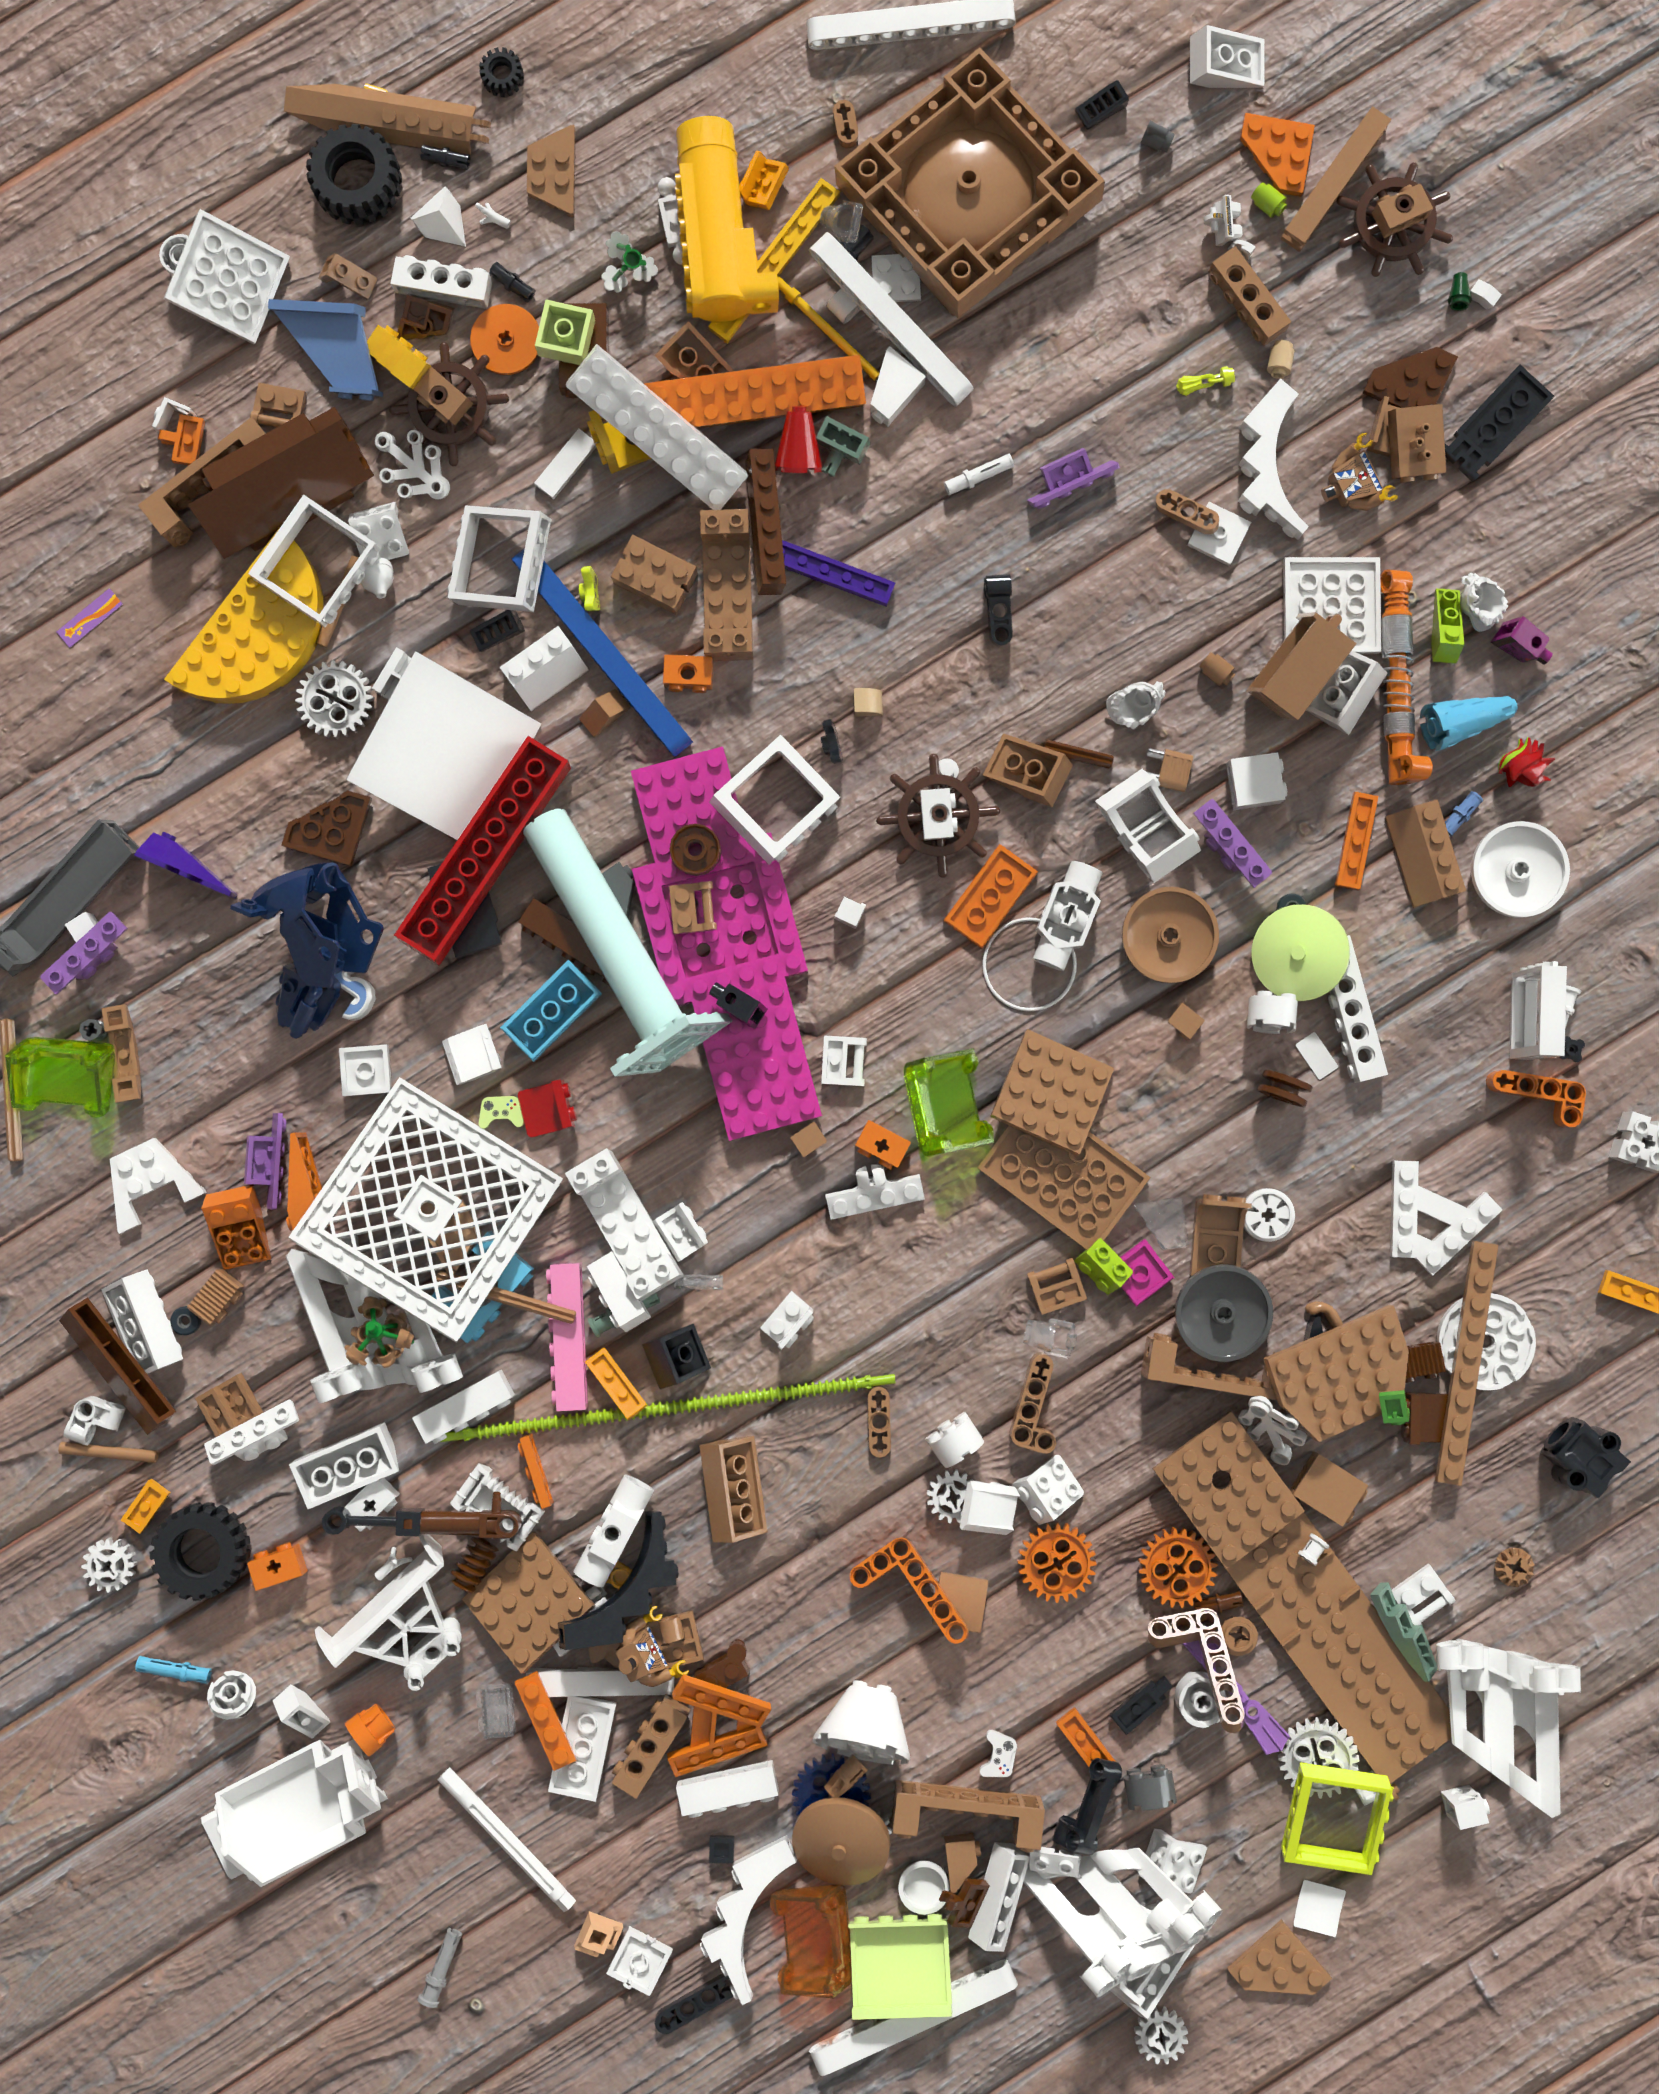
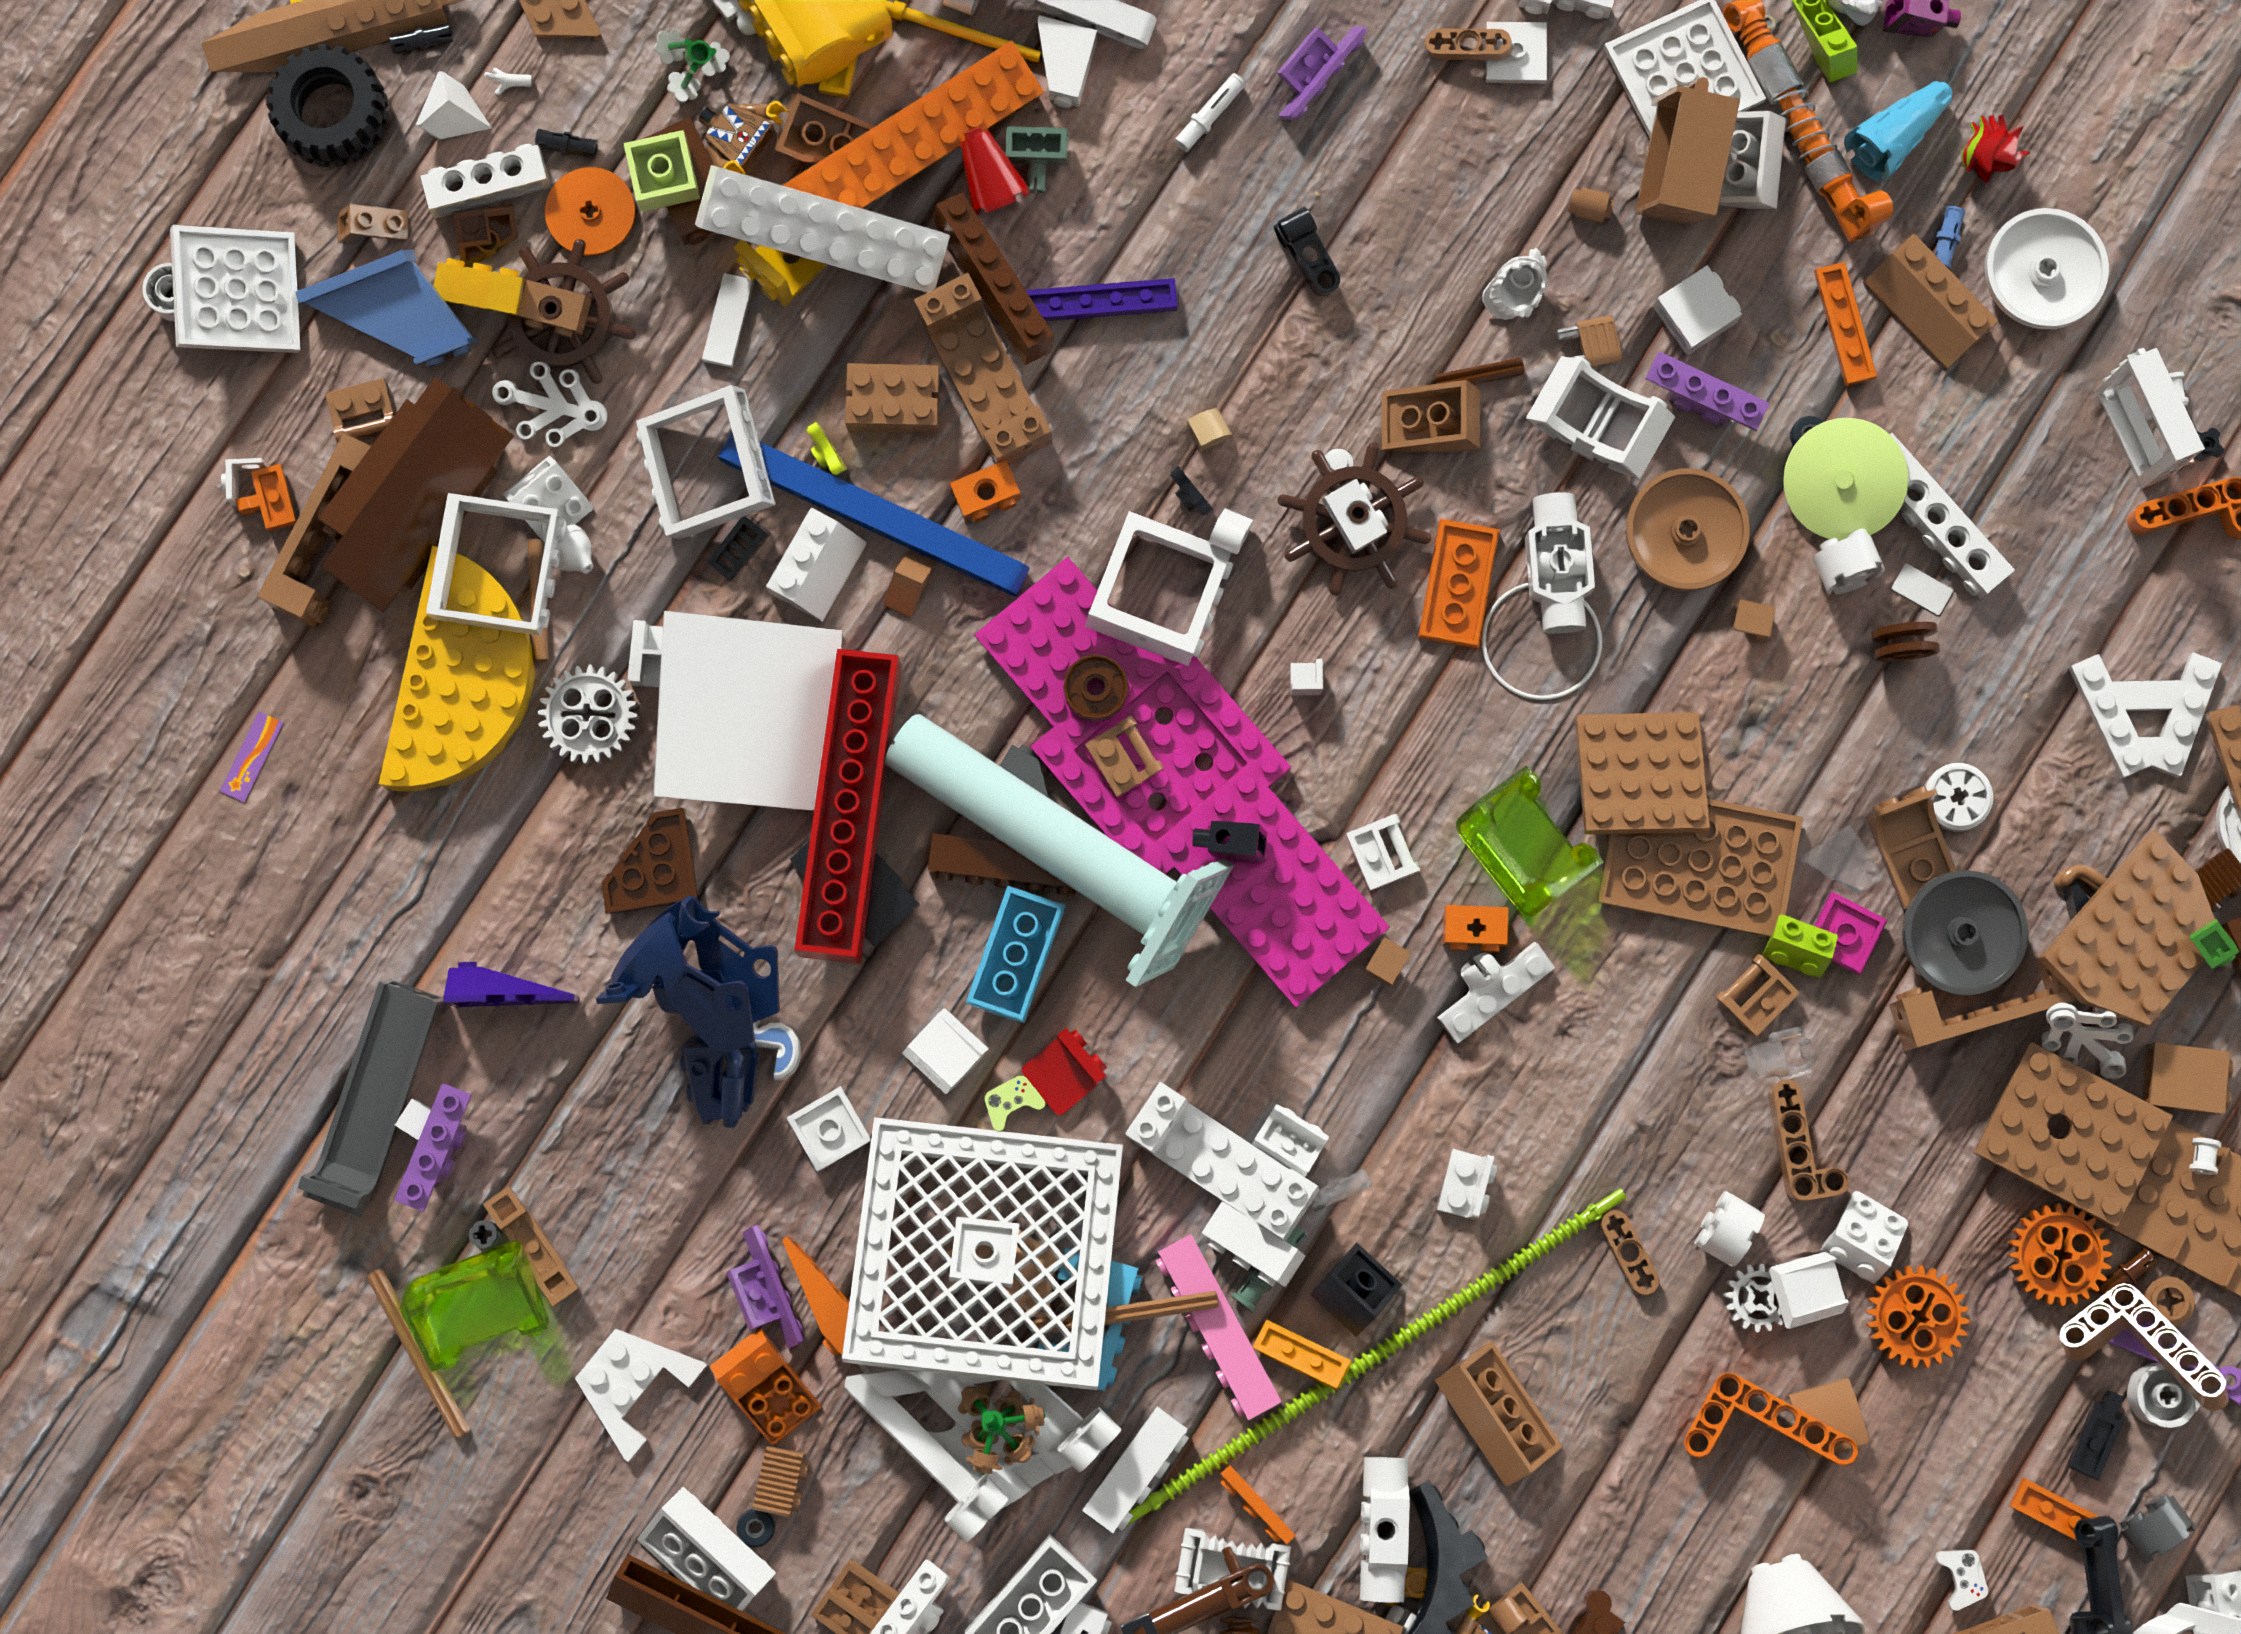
camera: 25 degrees left, 5 degrees down
(636, 333) = (740, 133): none -> torso
(846, 783) = (1230, 531): none -> white beam

